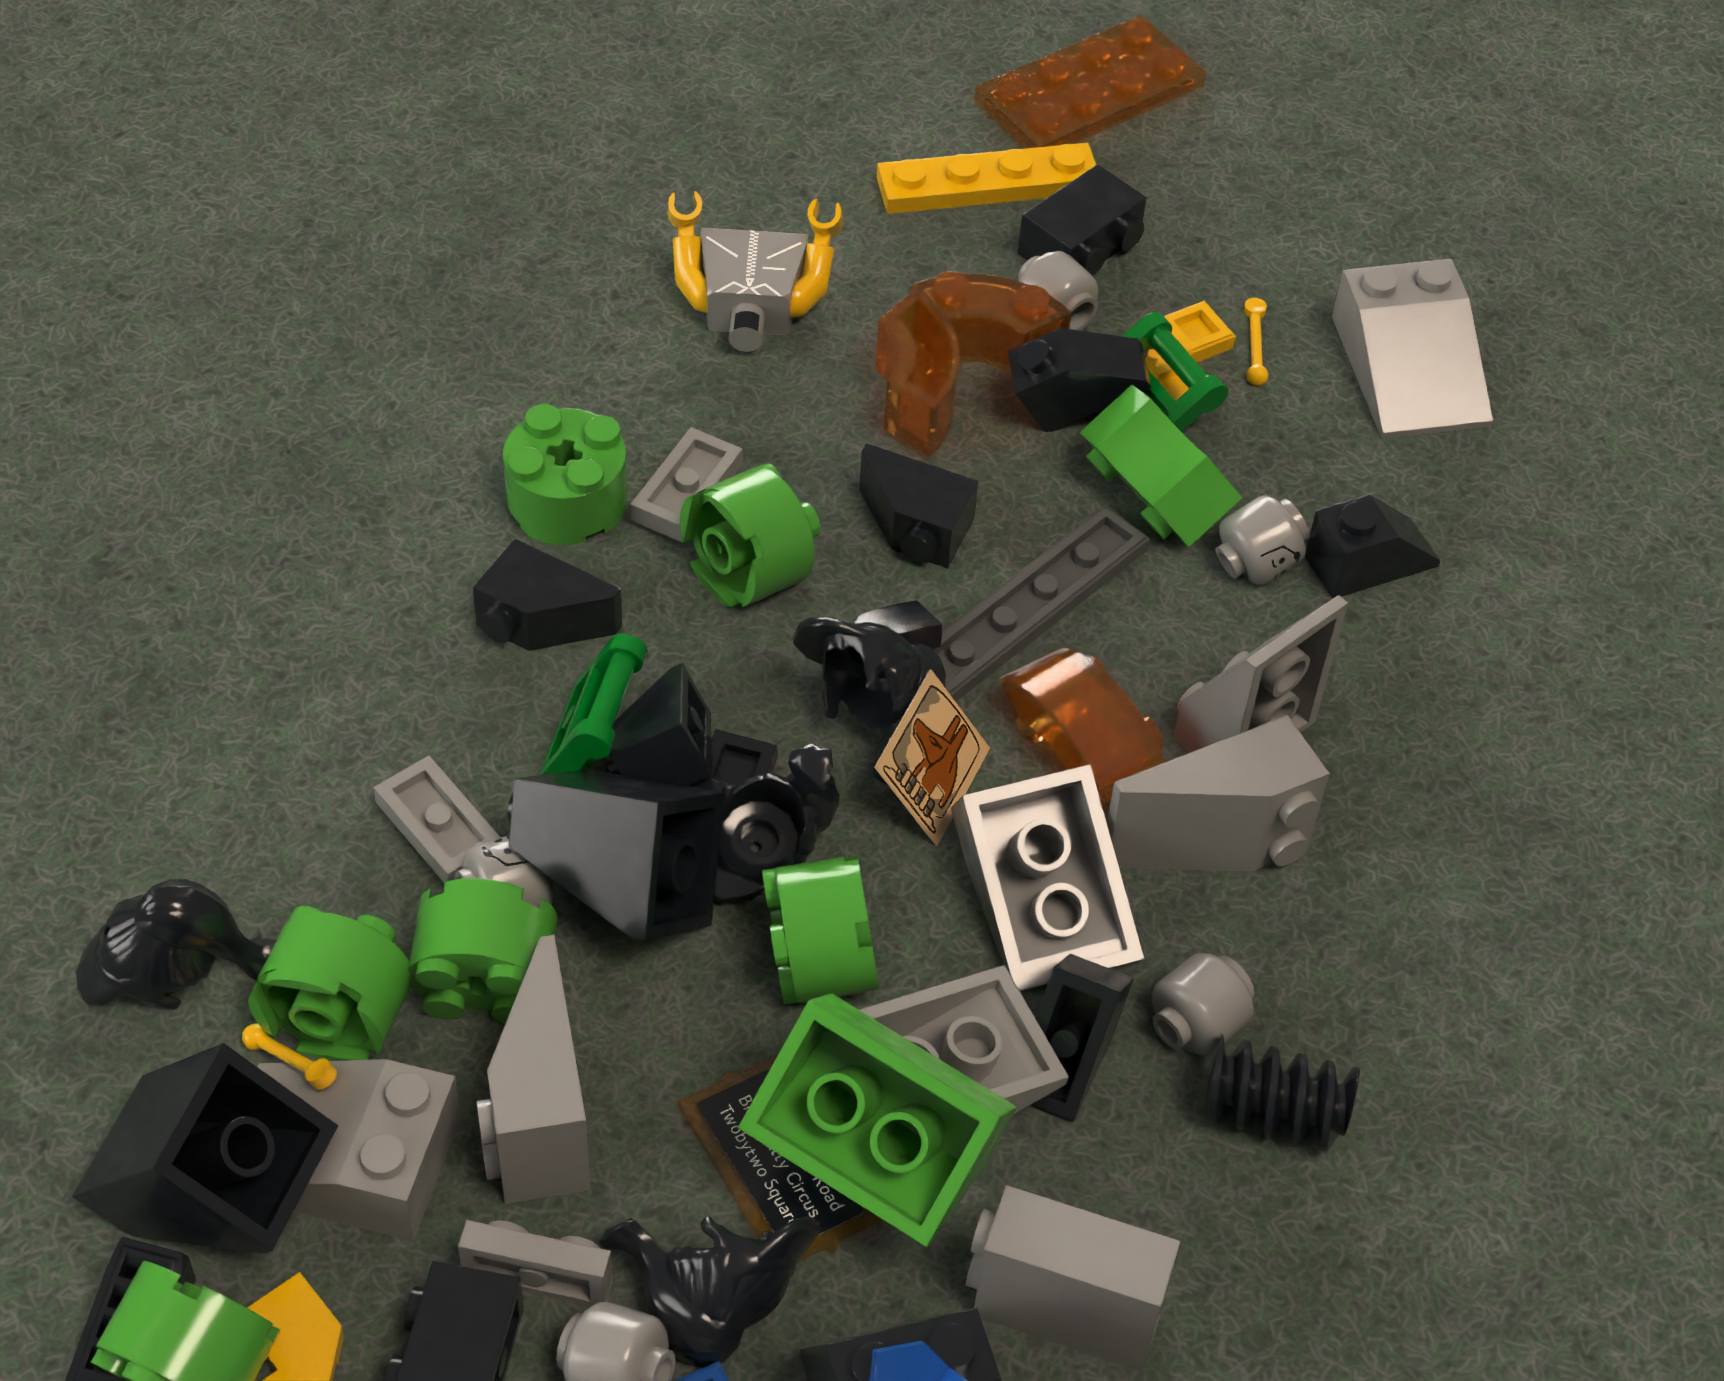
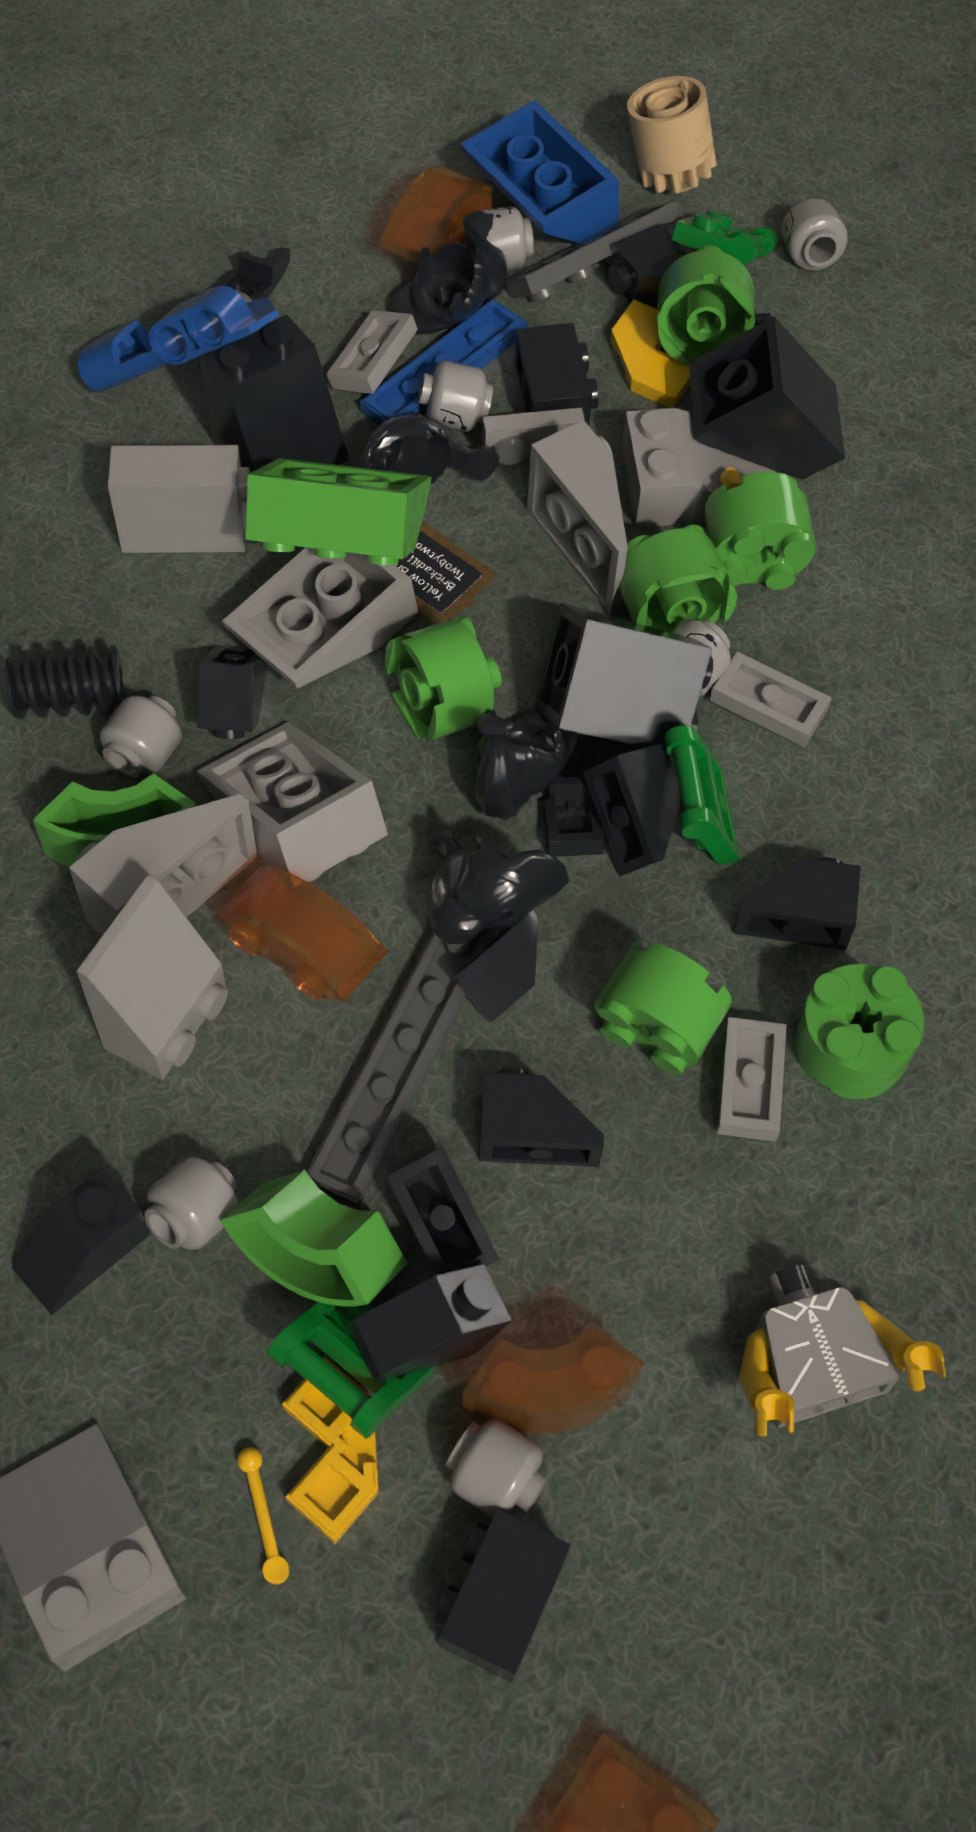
camera: 160 degrees right, 10 degrees up
(165, 944) = (891, 538): black piece -> none
(921, 367) = (587, 1273): clear orange brick -> none
(932, 757) = (416, 857): sticker -> none
(980, 177) = (641, 1663): yellow plate -> none
(1036, 462) = (440, 1211): none -> black slope
(1255, 883) = (88, 815): none -> bright green brick

